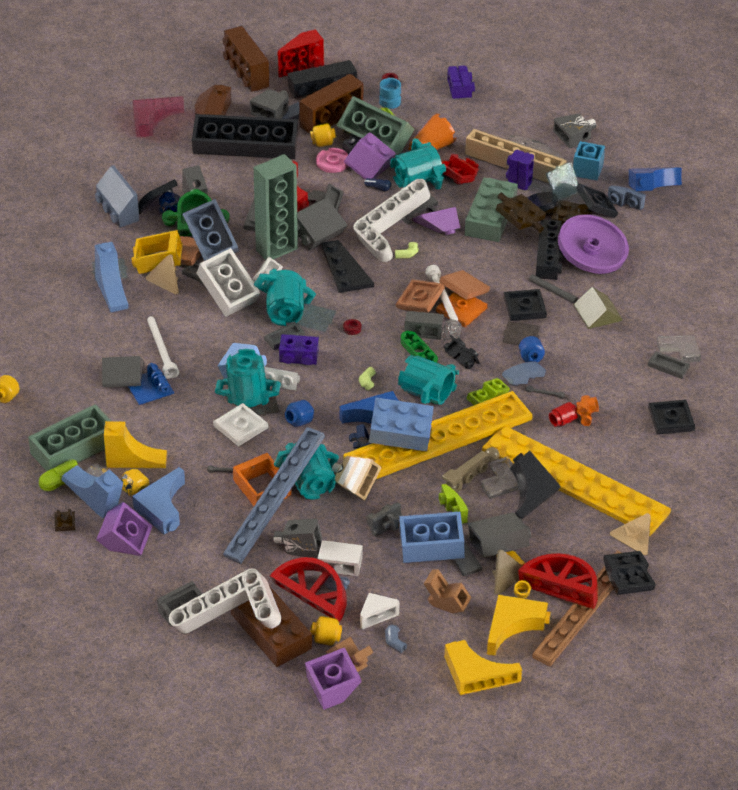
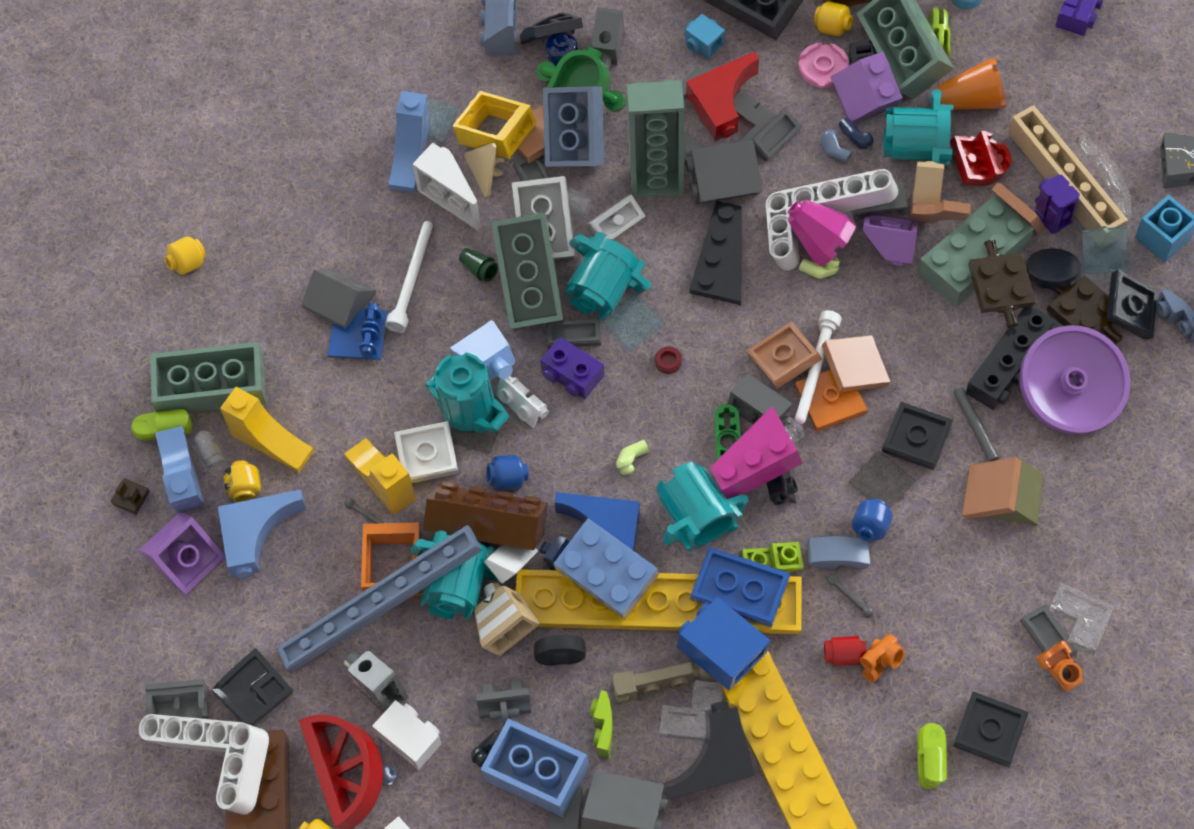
camera: 35 degrees right, 20 degrees up
(155, 290) = (443, 182): none -> white slope
(199, 324) = (478, 264): none -> dark green cone
(219, 571) = (252, 688): none -> black plate
(230, 444) = (383, 475): none -> yellow arch
(239, 305) = (527, 270): none -> sand green brick
(246, 167) = (704, 36): none -> dark azure brick
(333, 425) = (491, 516): none -> reddish brown brick
(338, 448) = (508, 561): none -> white slope
(369, 195) = (832, 148): none -> sand blue arm
(393, 545) = (482, 751): none -> black arm
(396, 473) = (559, 650): none -> black tyre
(398, 227) = (820, 229): none -> dark pink cone
(443, 189) = (927, 183): none -> tan slope
(448, 338) = (756, 457): none -> dark pink wedge
(464, 191) = (939, 211): none -> nougat tile
(482, 407) = (742, 584): none -> blue tile
(495, 432) = (722, 643): none -> blue brick
(501, 174) = (1018, 207): none -> nougat tile
(587, 308) = (992, 488): none -> nougat tile
(650, 441) = (932, 755): none -> lime arm
(690, 373) = (1056, 660): none -> orange plate

